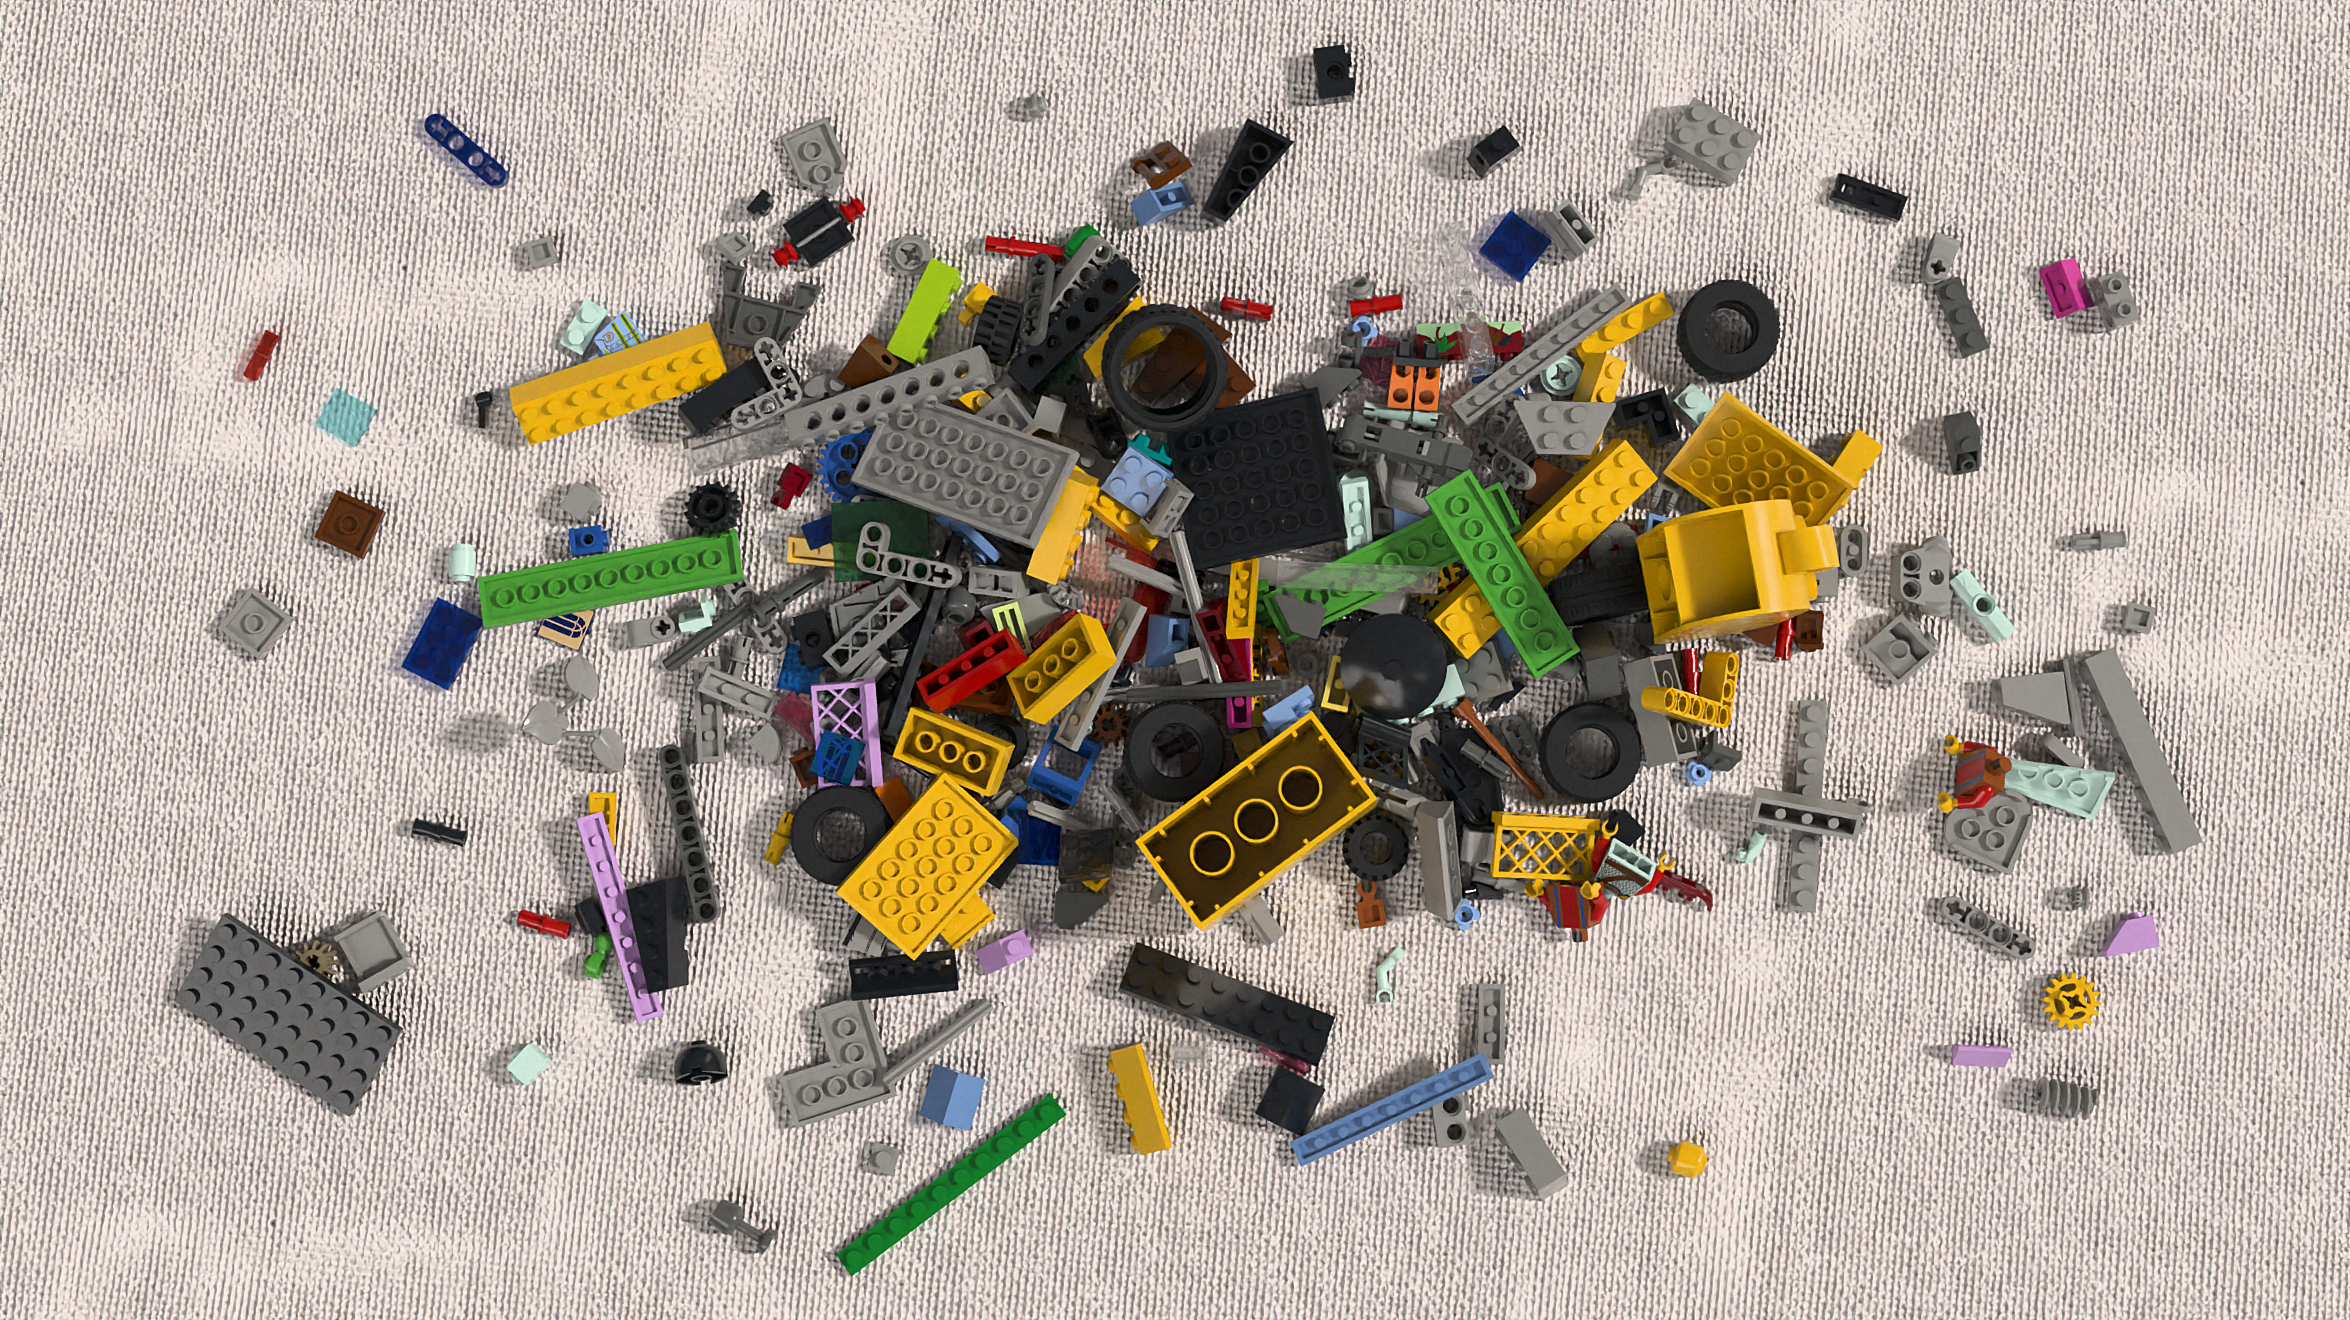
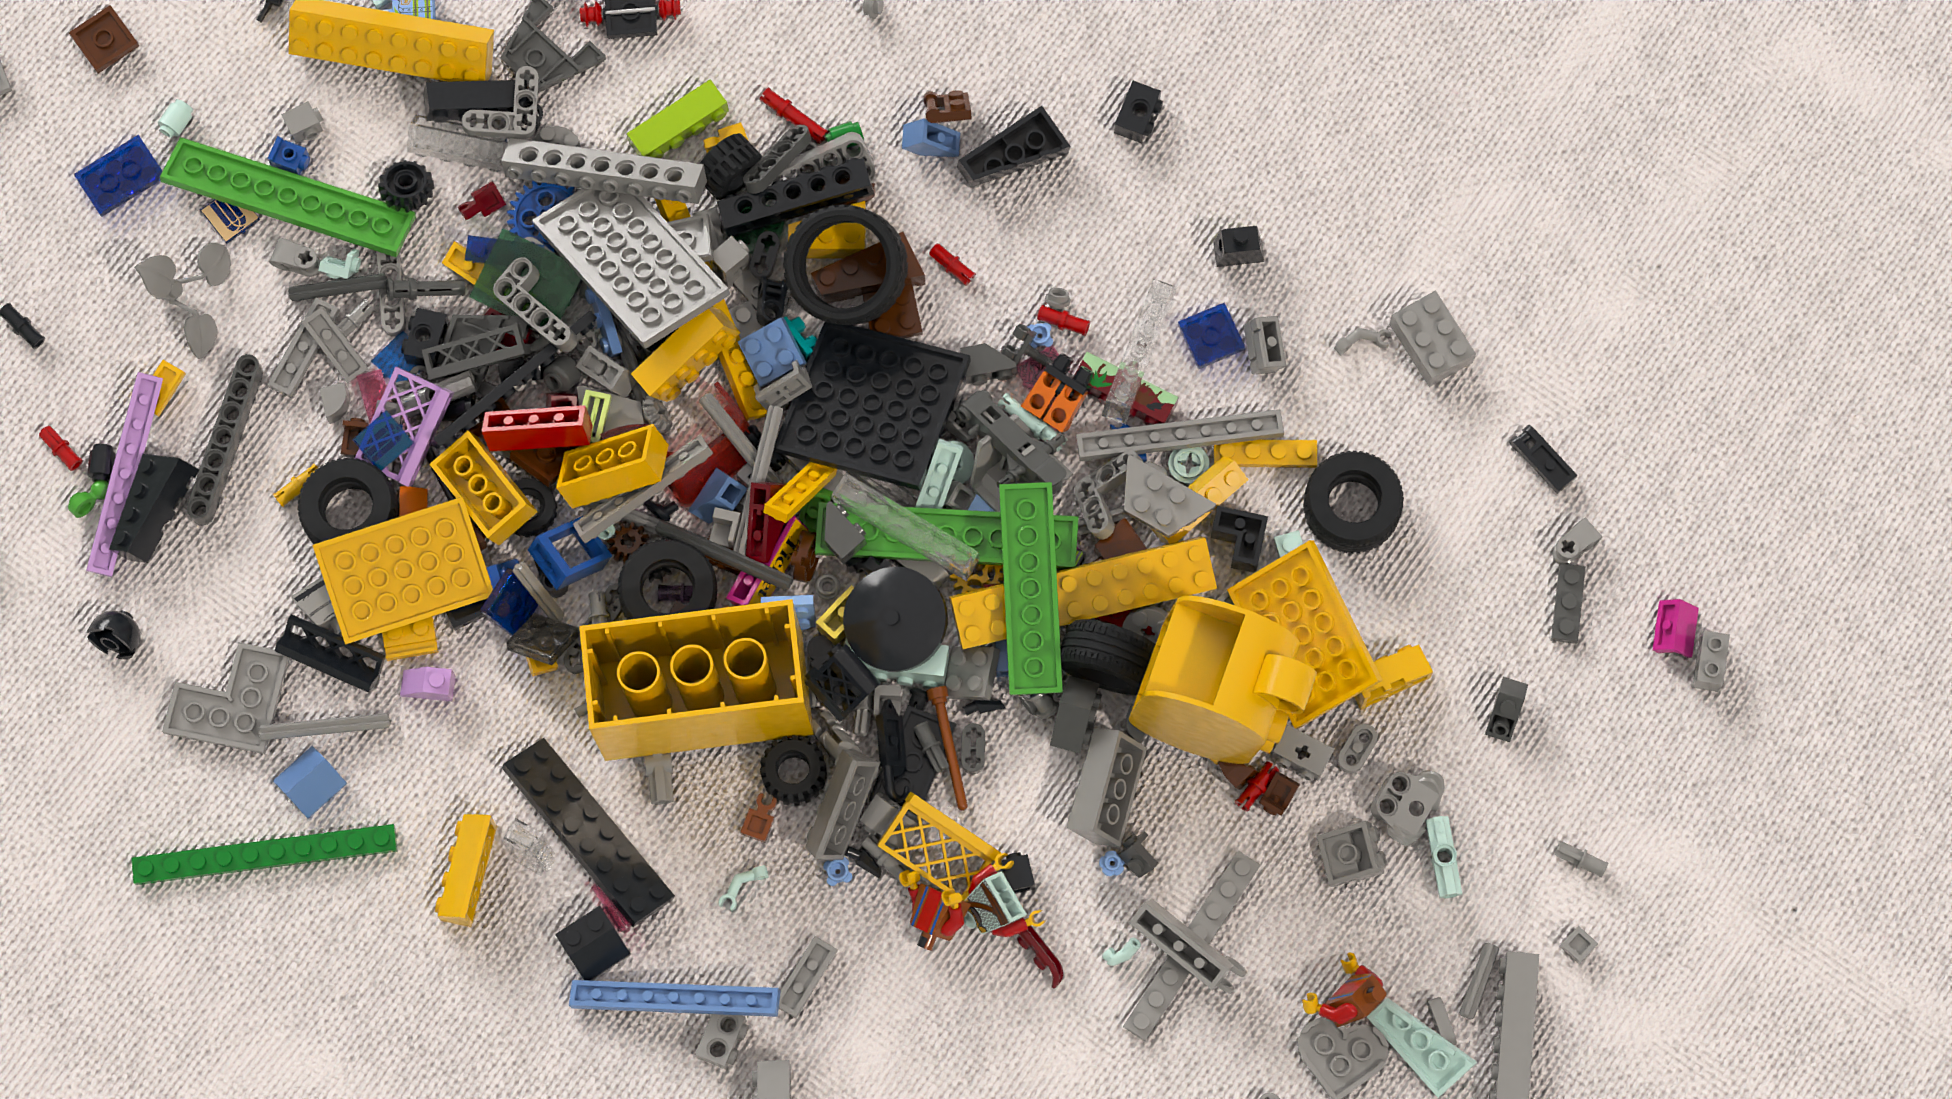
camera: 30 degrees right, 10 degrees down
(728, 1218) = (60, 774): dark grey piece -> none
(868, 364) = (605, 134): reddish brown torso -> none
(884, 1158) = (221, 800): light grey plate -> none
(909, 243) = (700, 61): light grey gear -> none
(1004, 796) = (506, 554): light grey axle -> none
(1076, 908) = (510, 680): dark grey slope -> none
(1626, 752) = (1018, 756): black tyre -> none
(1690, 671) = (1153, 776): red pin -> none
(1715, 697) = (1148, 811): yellow beam -> none
(2034, 696) = (1445, 960): light grey slope -> none

